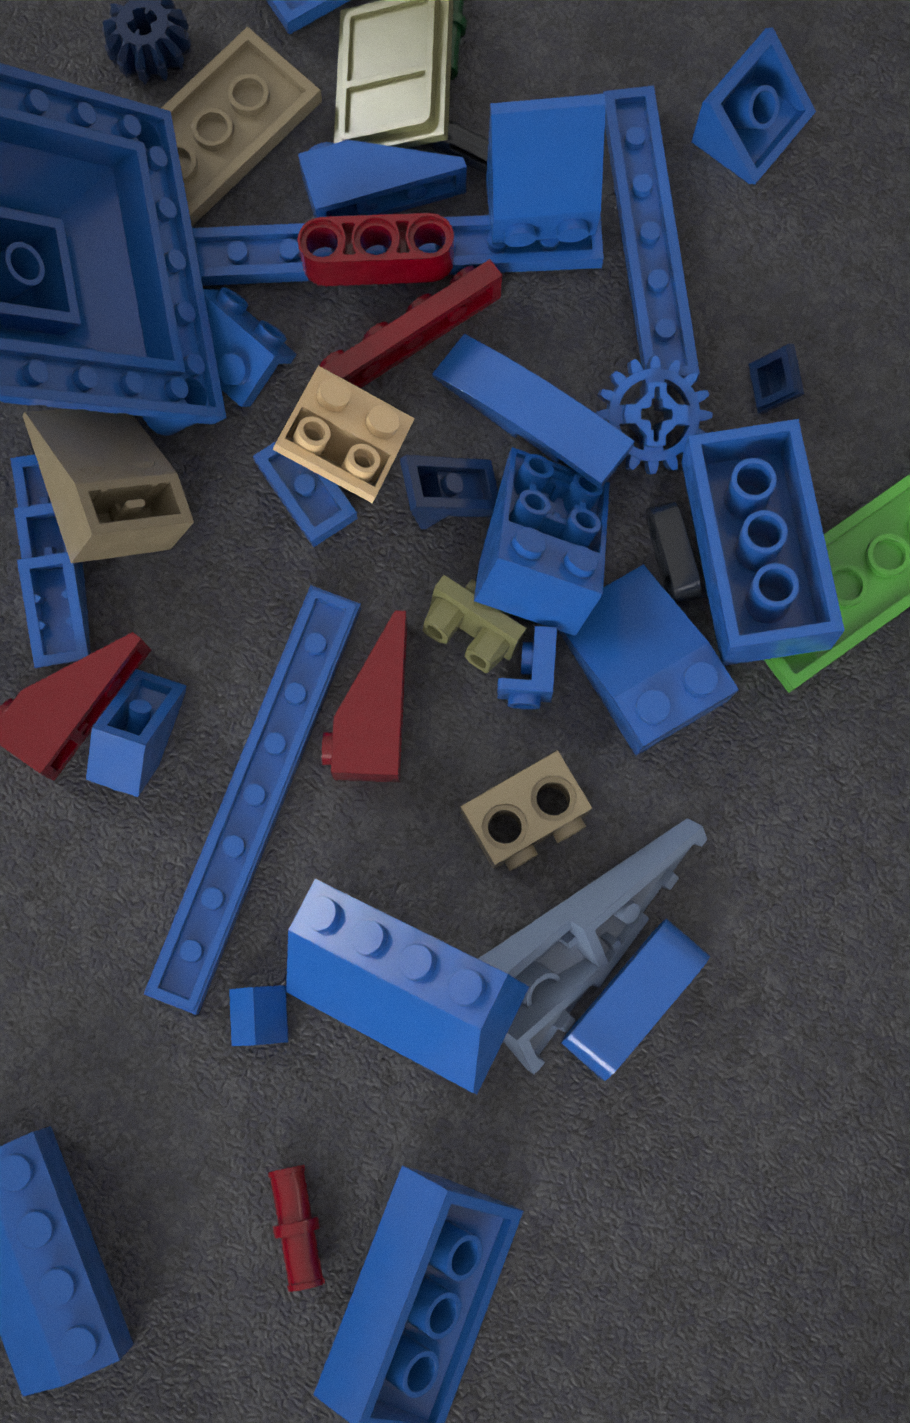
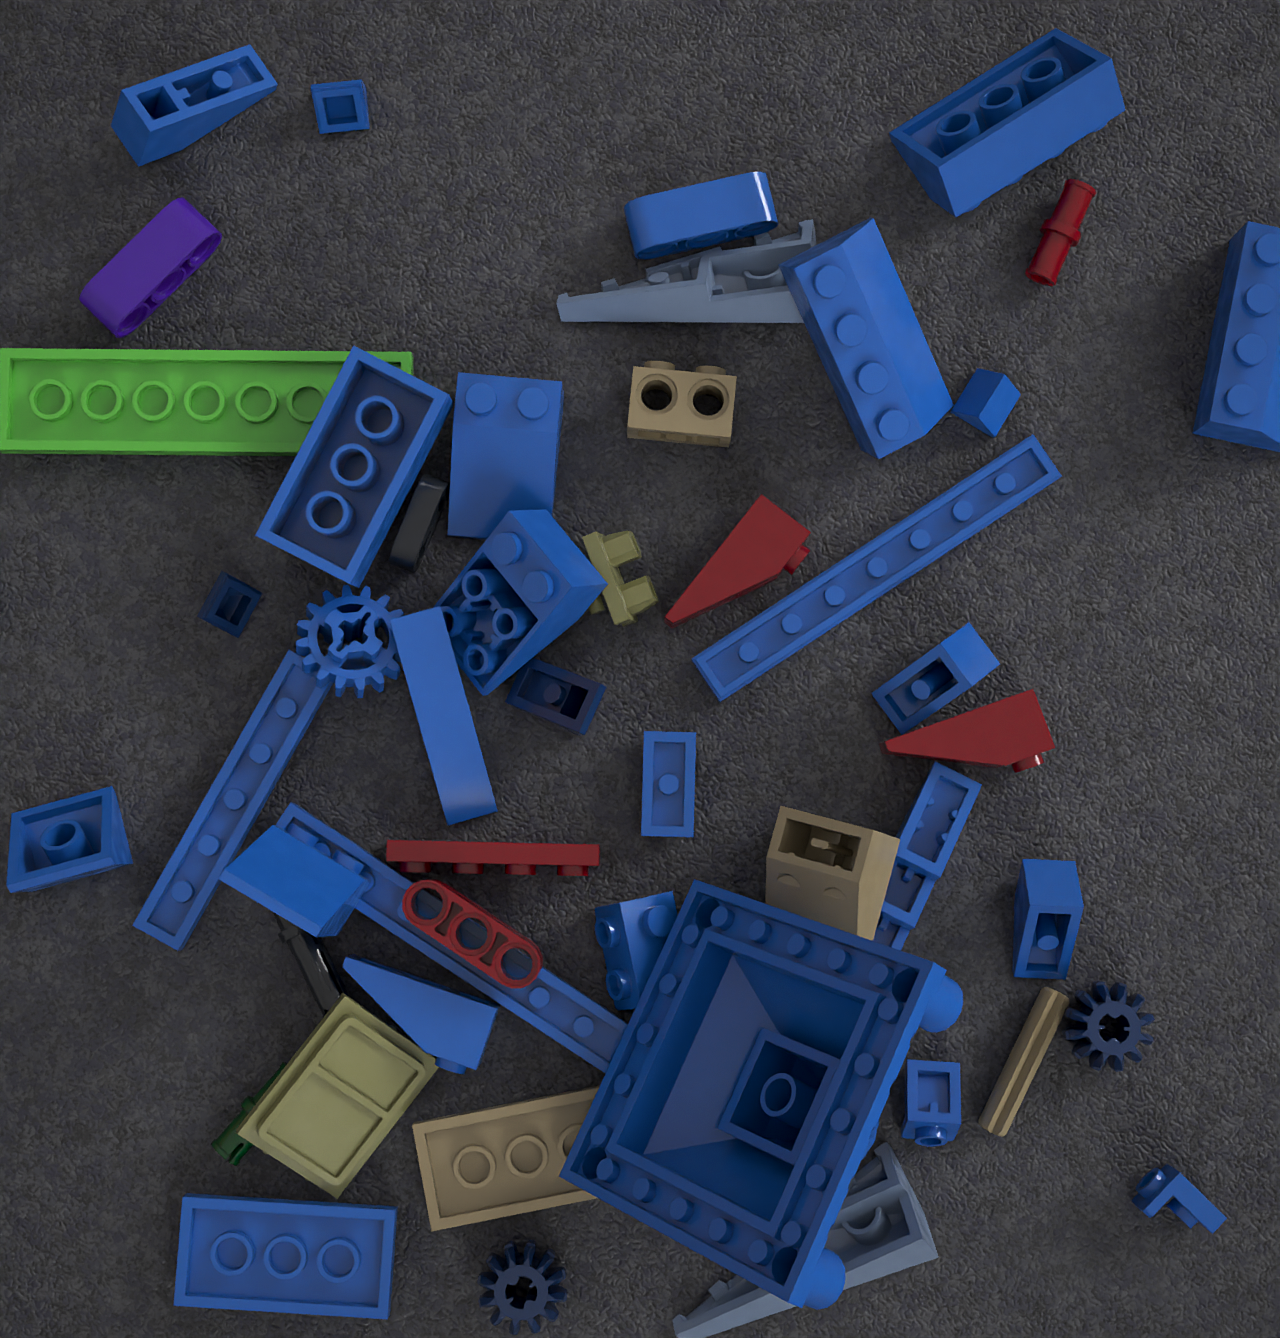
camera: 145 degrees left, 5 degrees up
(344, 434) = (617, 788): tan slope -> none
(537, 661) = (587, 510): blue bracket -> none

